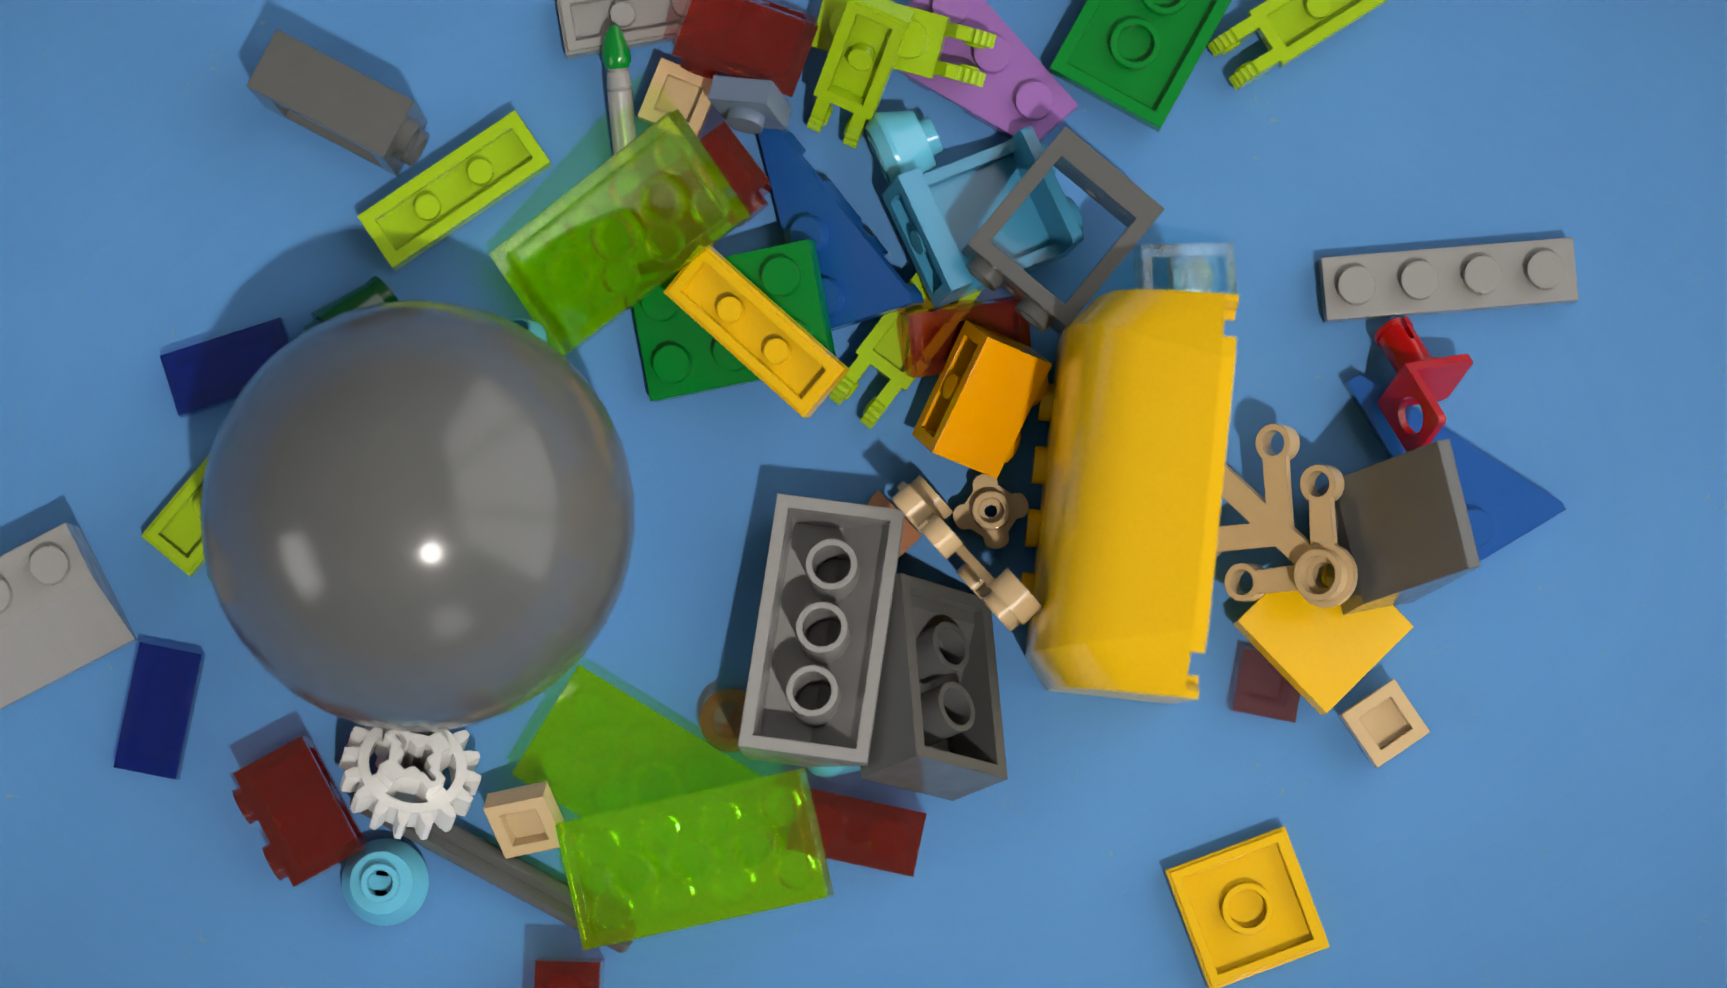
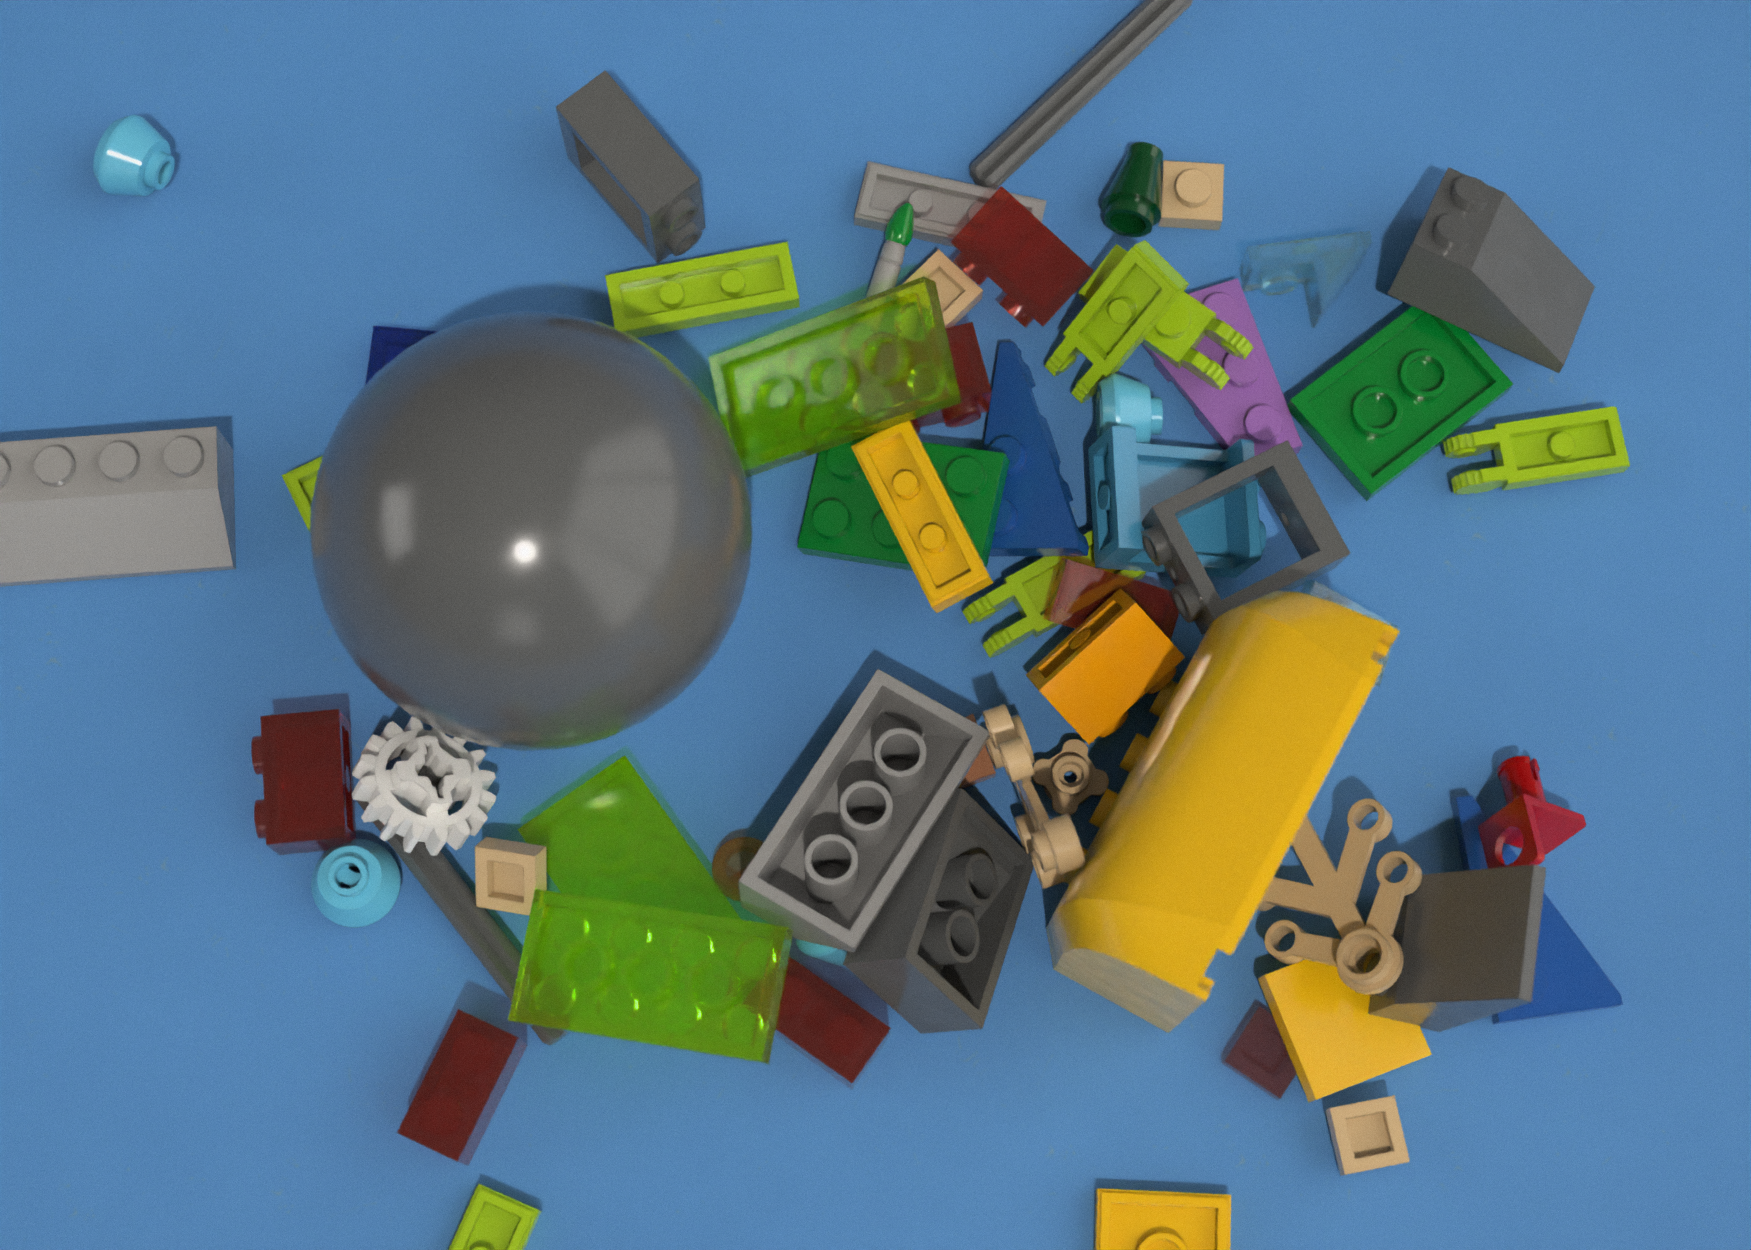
camera: 25 degrees right, 10 degrees down
(159, 711) = (224, 639): clear blue tile -> none
(749, 104) = (1002, 317): sand blue plate -> none
(1448, 280) = (1589, 745): light grey plate -> none

